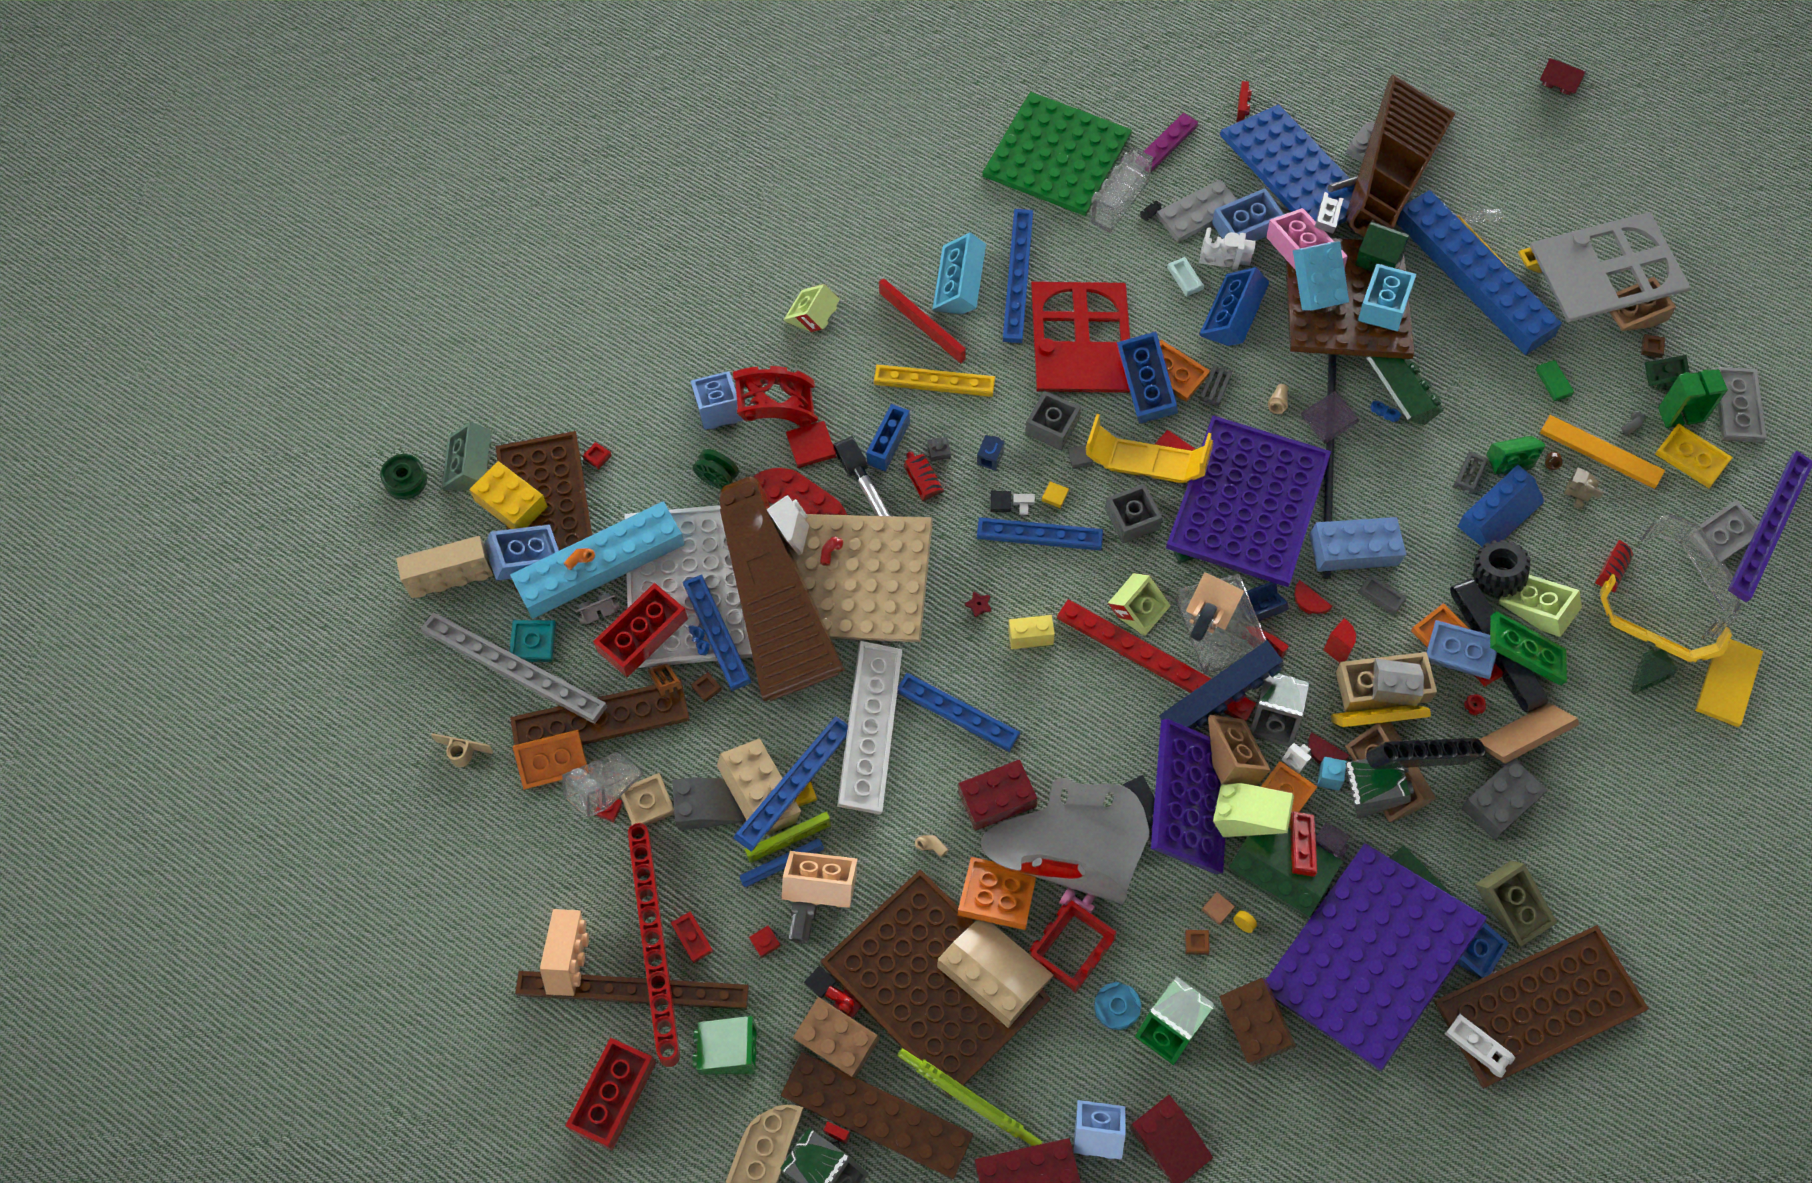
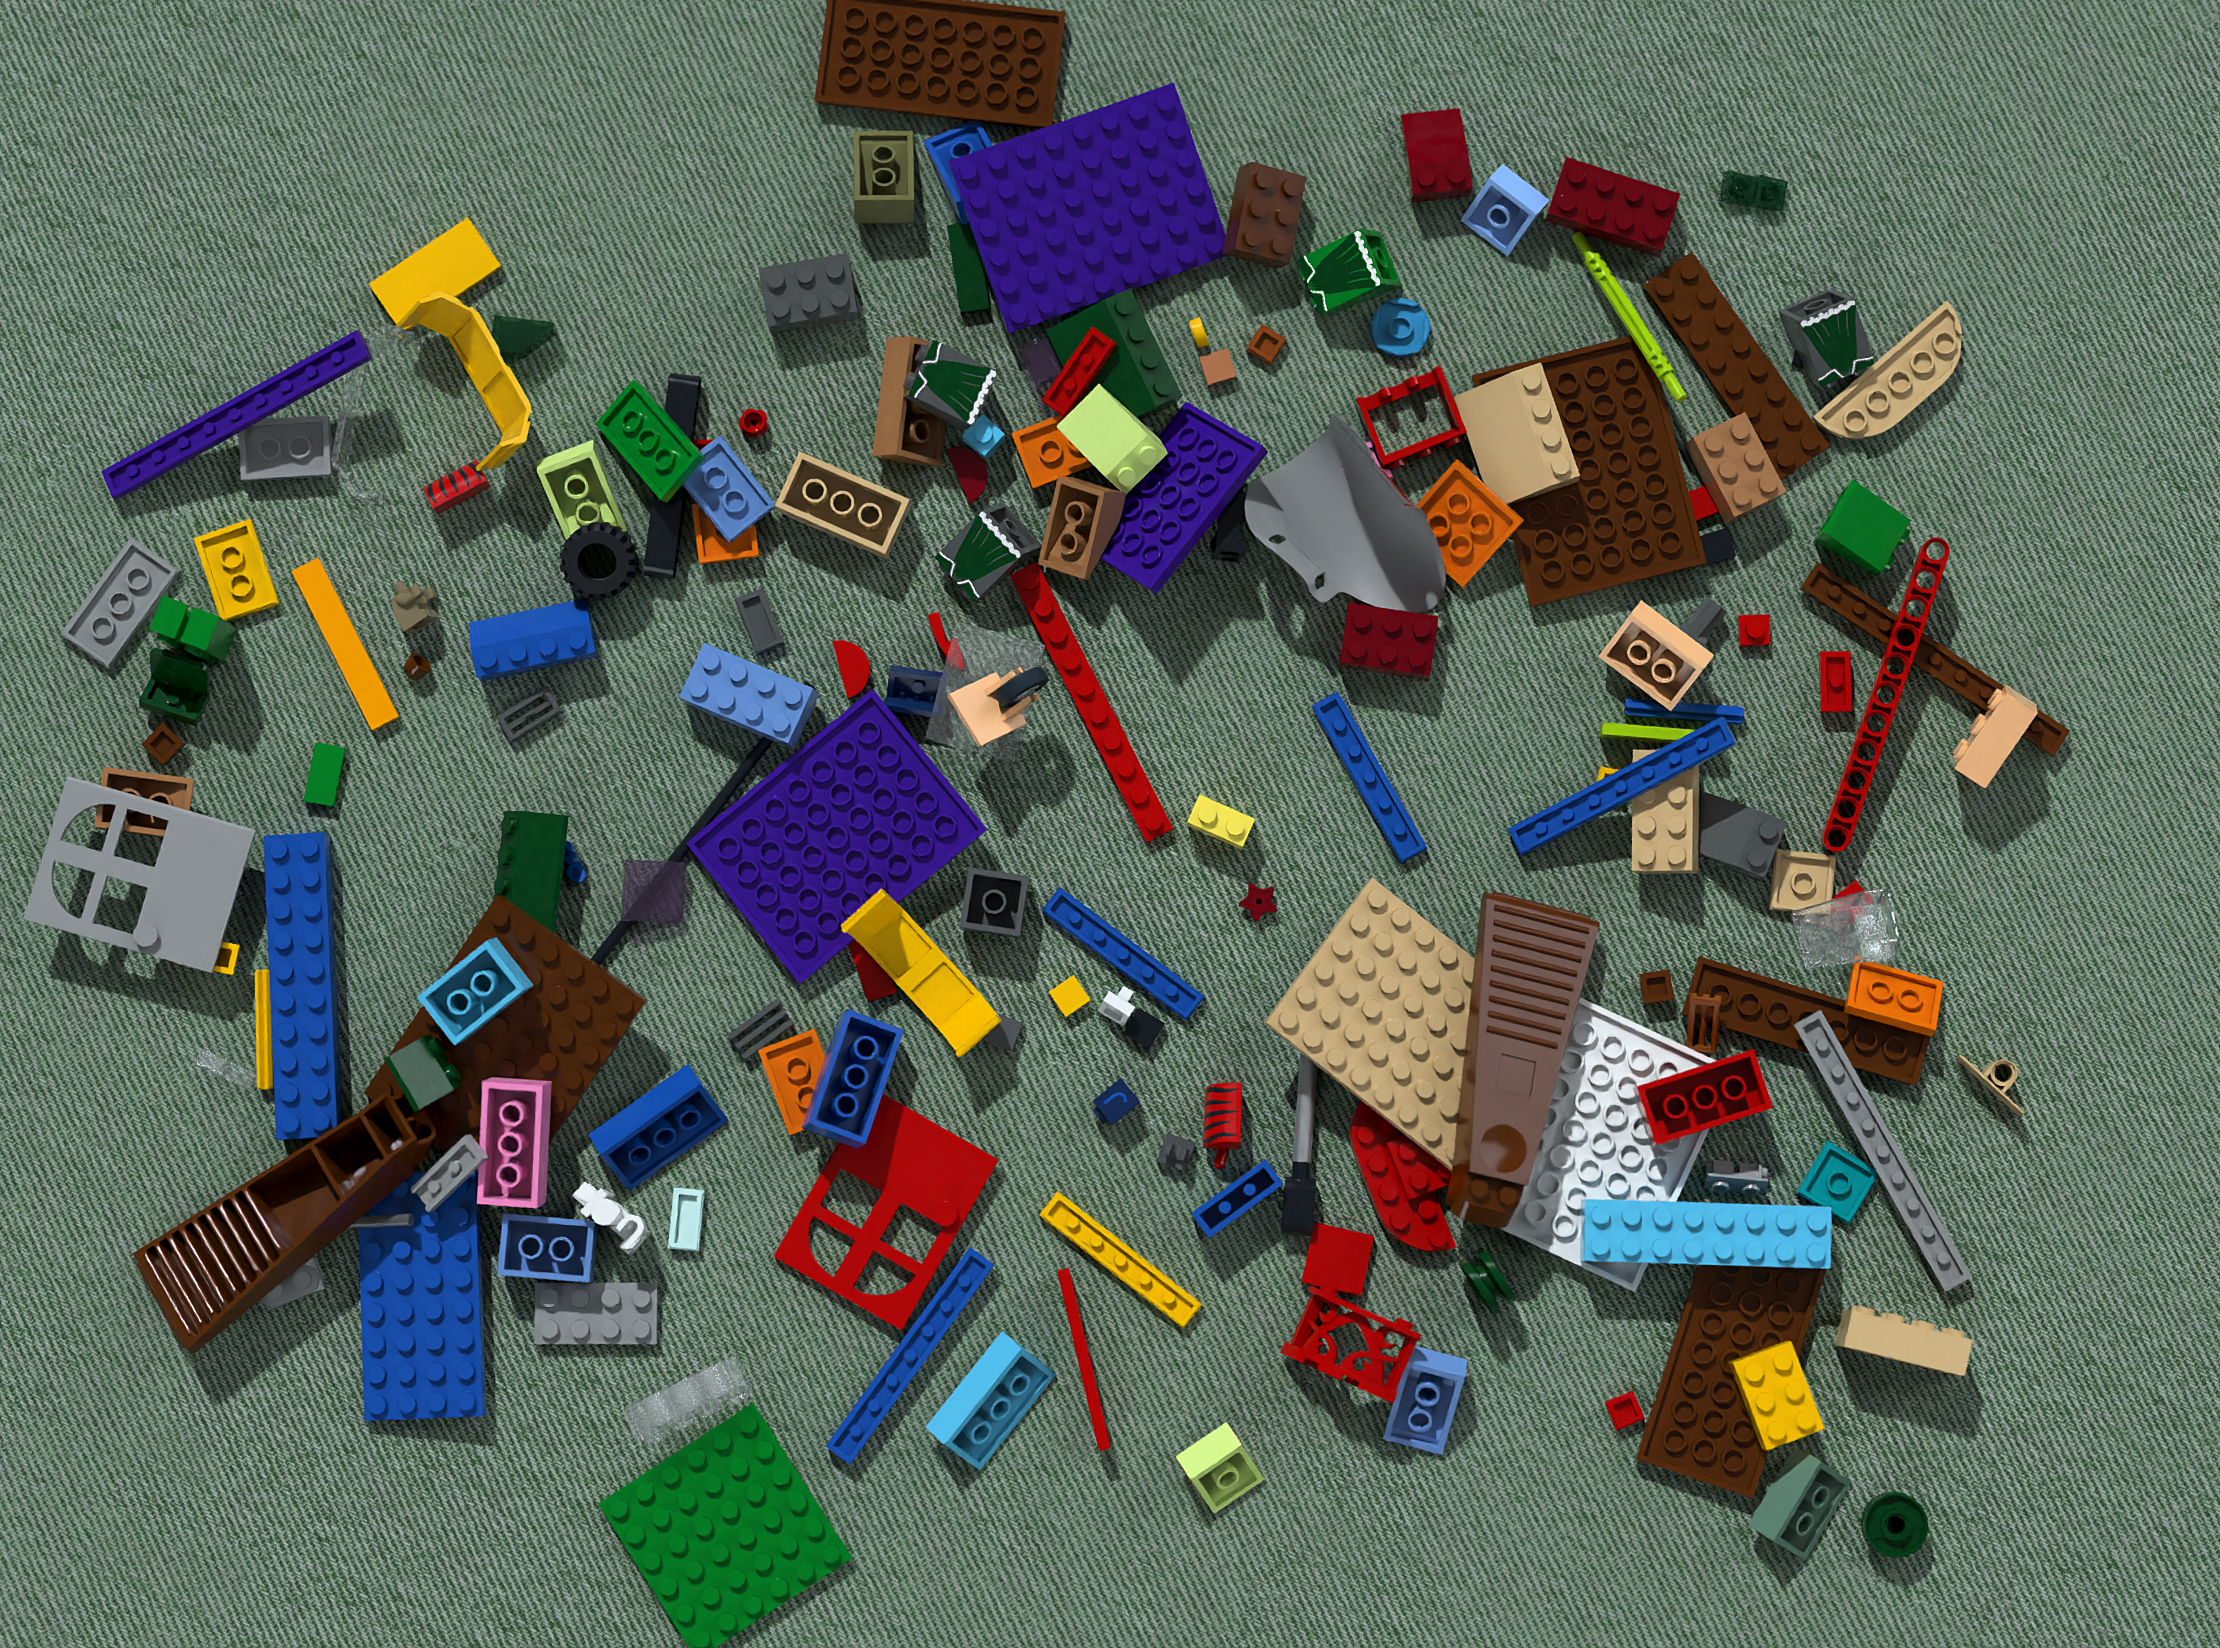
camera: 150 degrees left, 20 degrees up
(518, 548) = (1794, 1305): medium blue slope -> none
(579, 556) = (1731, 1234): orange arm -> none
(611, 1094) = (2017, 550): red brick -> none
(698, 636) = (1634, 1040): blue piece -> none
(717, 633) = (1606, 1049): blue tile -> none
(791, 521) = (1447, 1117): white slope -> none
(827, 549) = (1413, 1063): red arm -> none
(836, 1132) = (1790, 369): red tile -> none
(842, 998) = (1703, 508): red arm -> none
(870, 728) = (1487, 815): white plate -> none
(931, 842) = (1497, 634): tan arm -> none
(1052, 420) = (1010, 1096): dark grey brick -> none
(1139, 603) = (1064, 782): yellowish green slope -> none
(1150, 210) = (662, 1352): black piece -> none
(1171, 138) = (561, 1455): magenta plate -> none
(1226, 687) = (1048, 603): dark blue brick -> none
(1244, 96) = (419, 1442): red plate -> none
(1279, 400) = (697, 956): tan cone -> none
(1297, 757) = (1008, 481): white tile -> none
(1321, 276) = (545, 1065): medium azure brick -> none
(1341, 641) = (860, 582): red brick -> none
(1380, 715) = (883, 466): yellow tile -> none
(1397, 682) = (839, 487): light grey slope -> none
(1425, 753) = (877, 377): black beam -> none
(1480, 1045) = (1043, 52): white plate -> none
(1508, 454) = (462, 700): green slope -> none
(1528, 732) = (725, 348): medium nougat tile -> none
(1637, 421) = (274, 652): dark grey arm -> none

